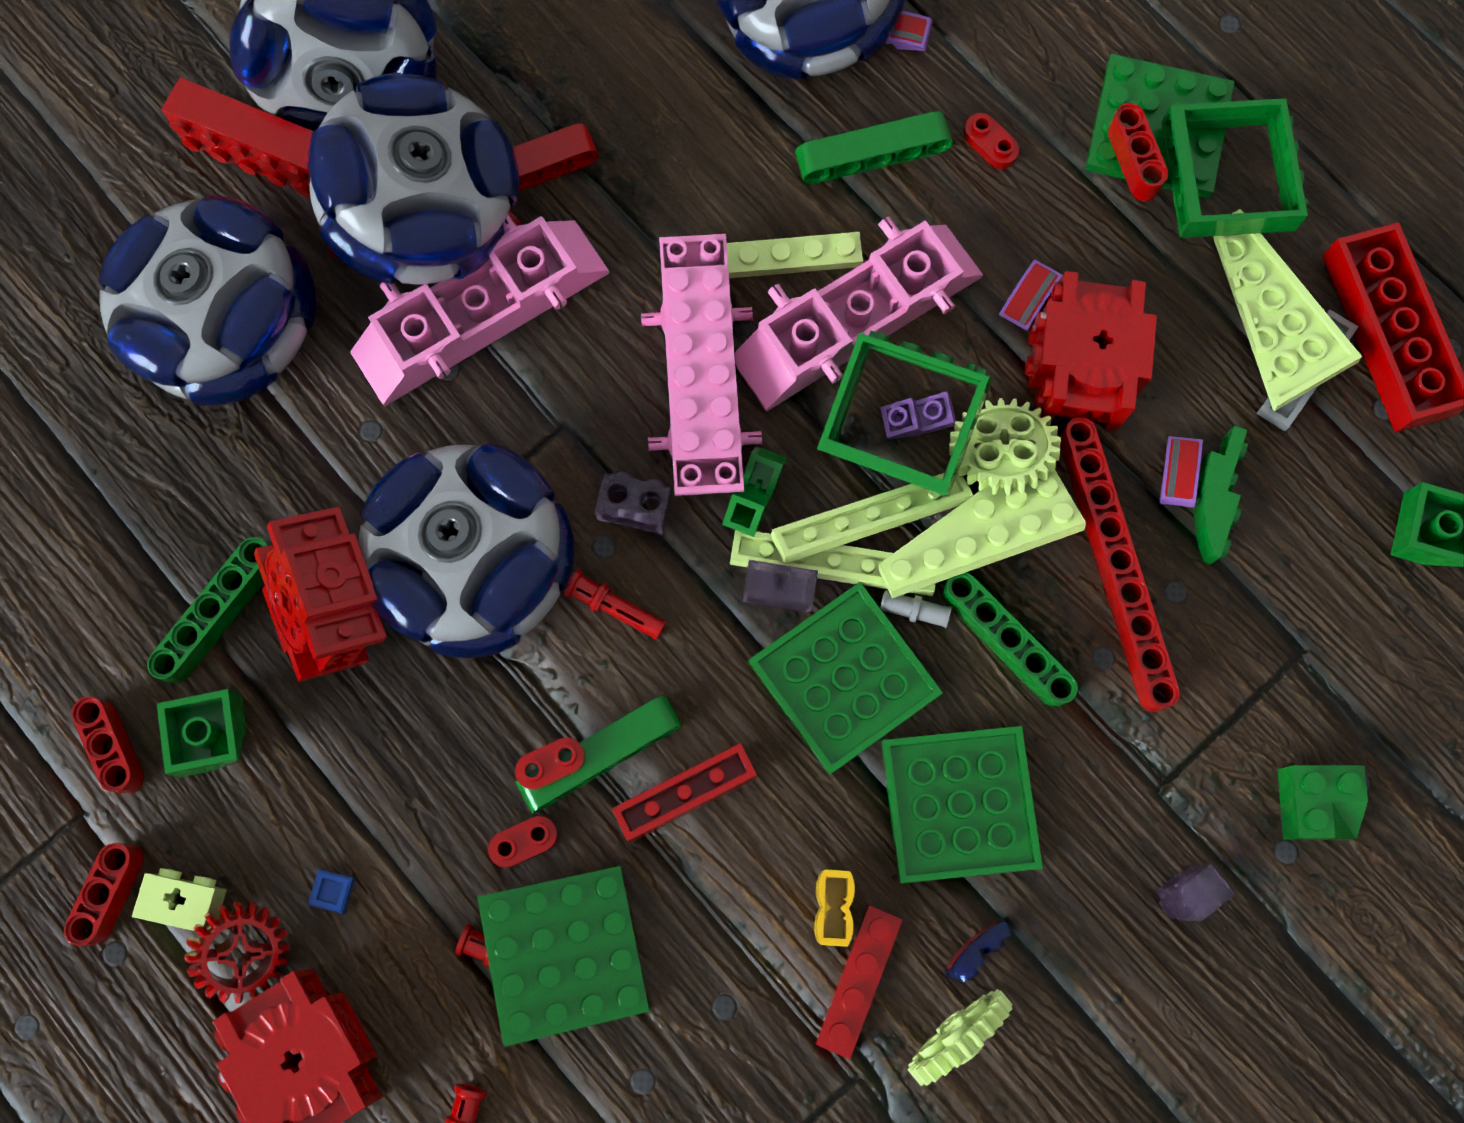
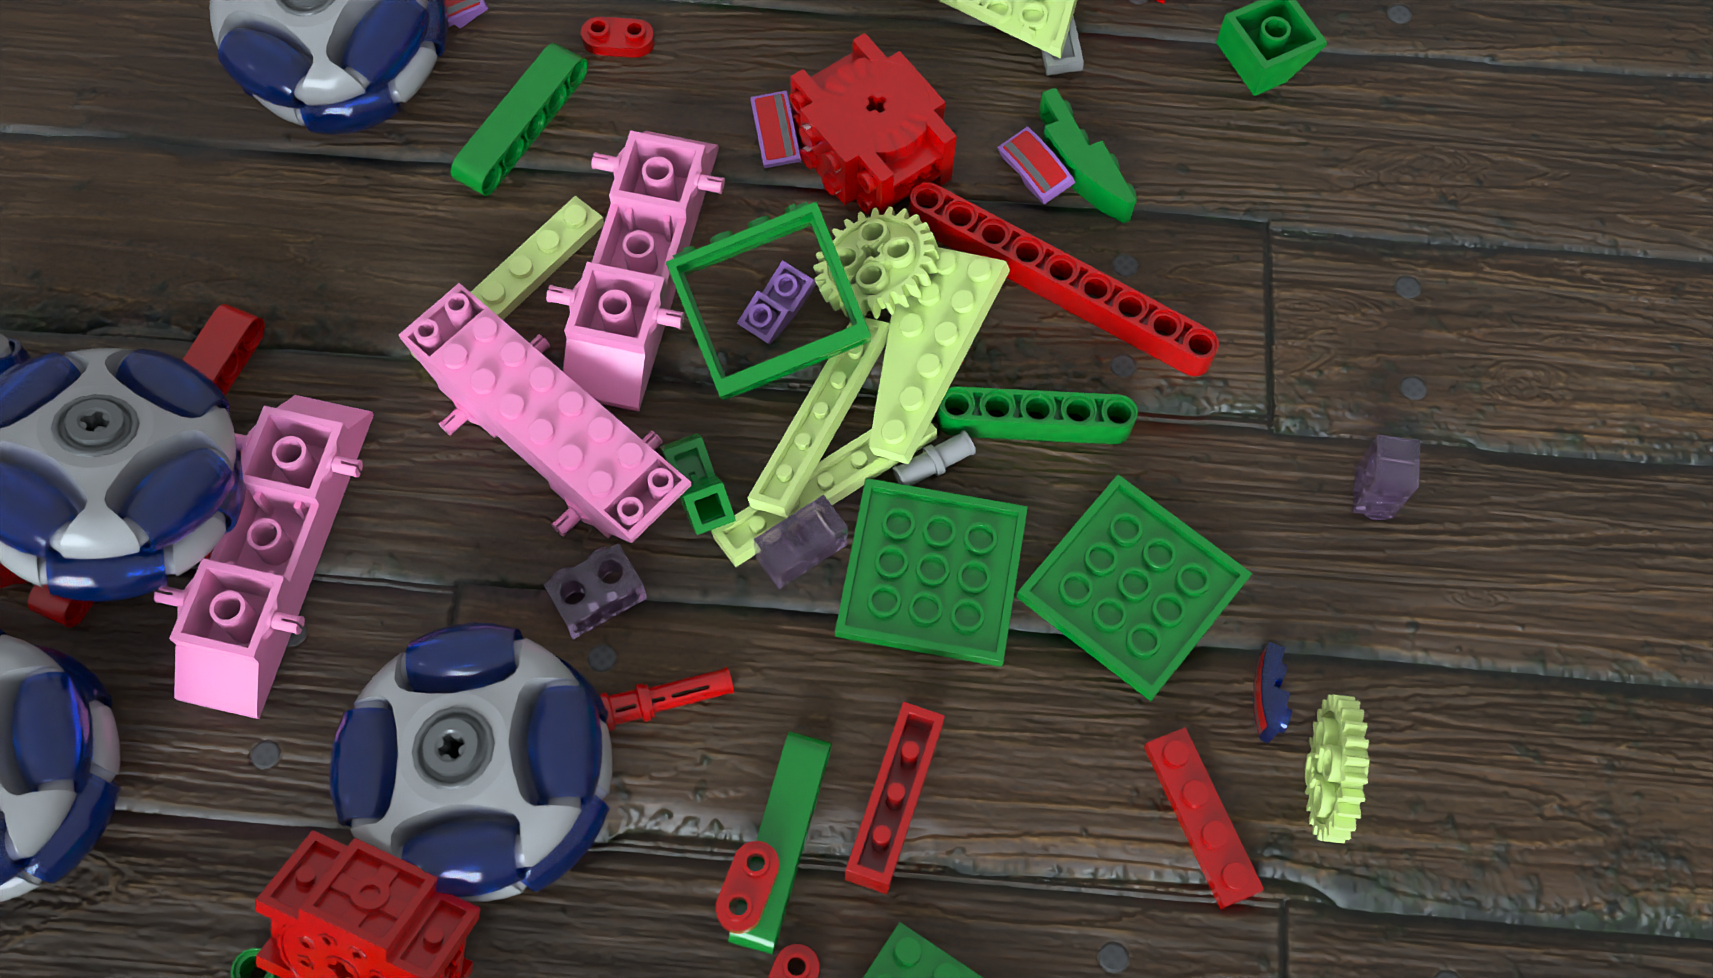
camera: 45 degrees left, 10 degrees down
(834, 920) = (1113, 761): yellow brick -> none
(1322, 801) = (1399, 321): green slope -> none

